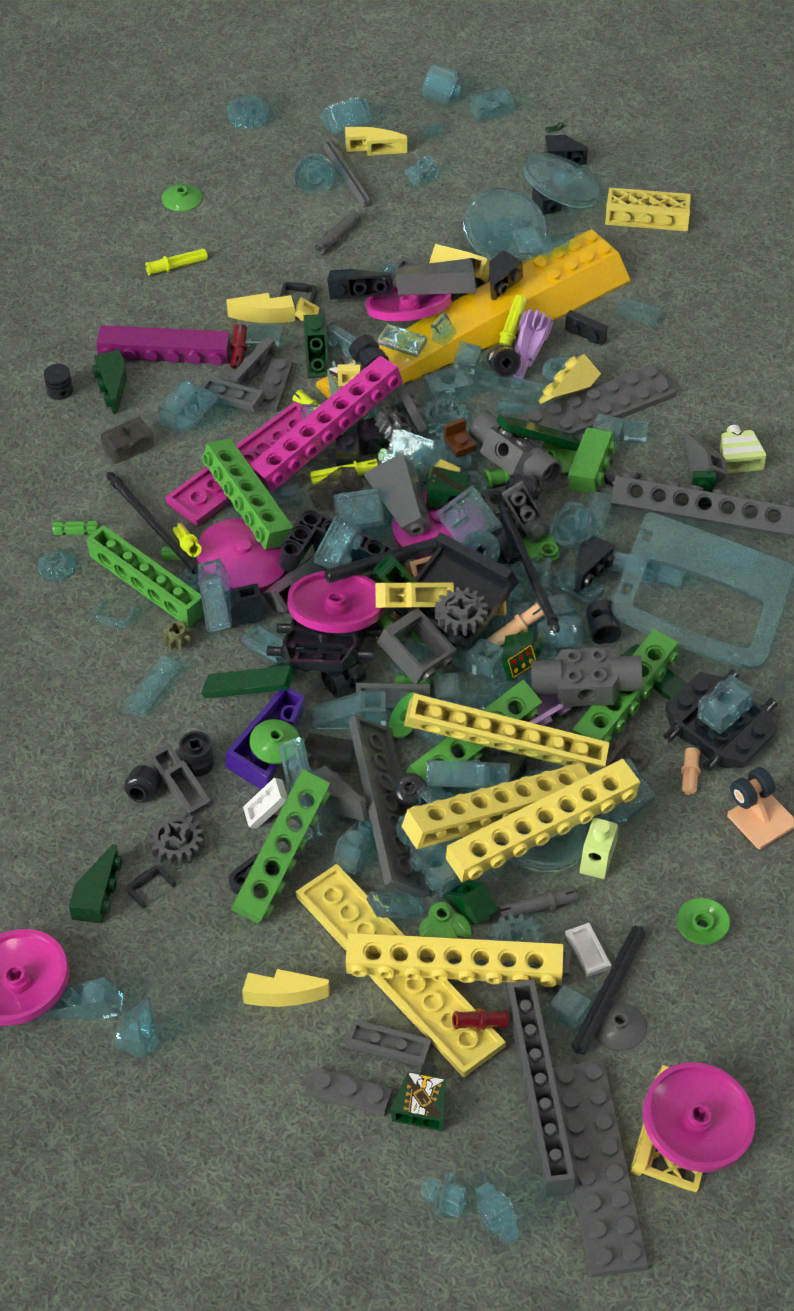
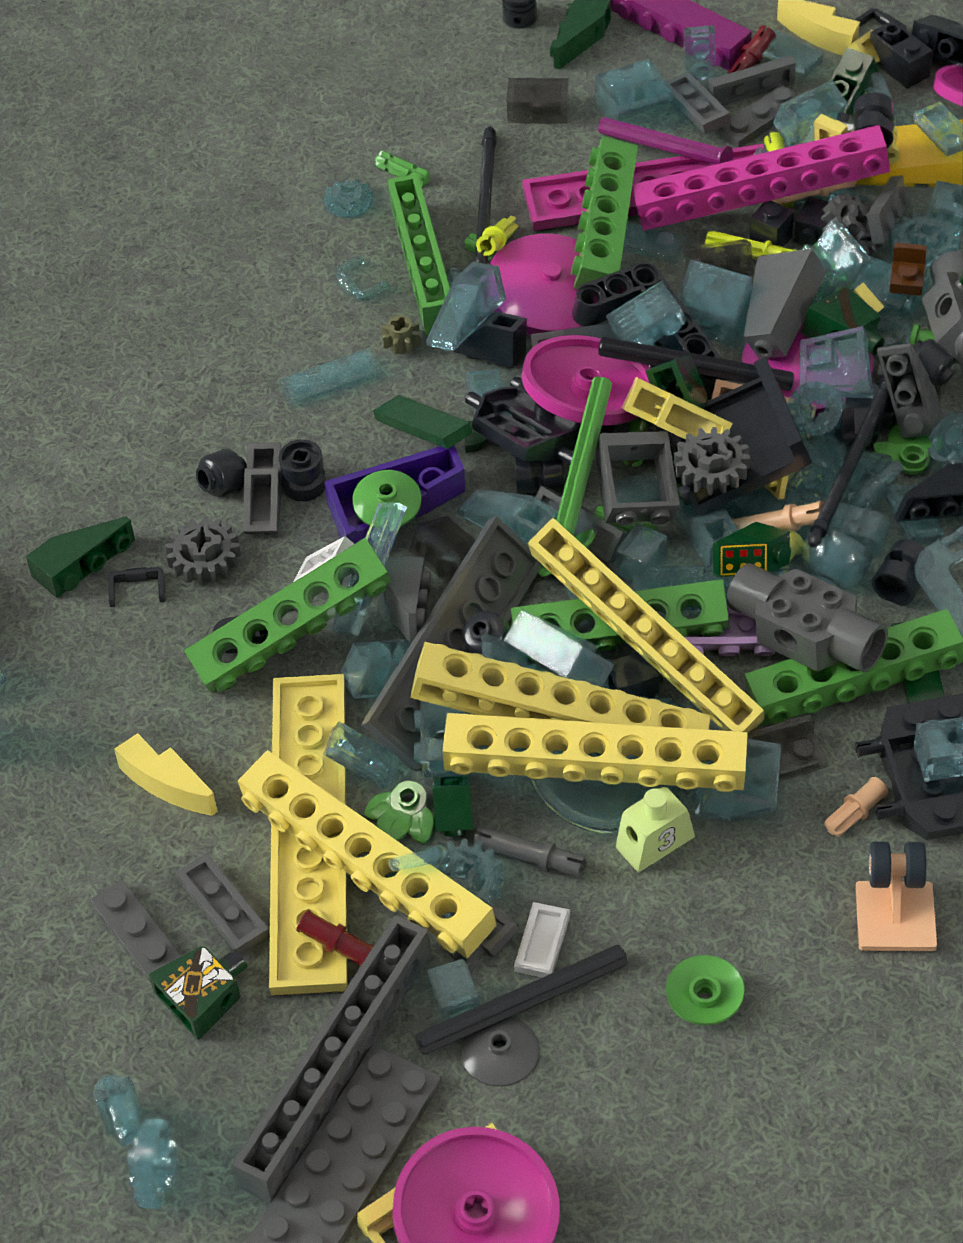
camera: 40 degrees right, 0 degrees up
(209, 360) = (700, 51): none -> clear light blue plate
(235, 428) = (665, 141): none -> magenta axle
(315, 368) = (798, 114): none -> clear light blue brick
(333, 303) = (902, 54): none -> black slope
(379, 652) = (584, 453): none -> bright green axle
(500, 938) = (420, 857): none -> clear light blue piece

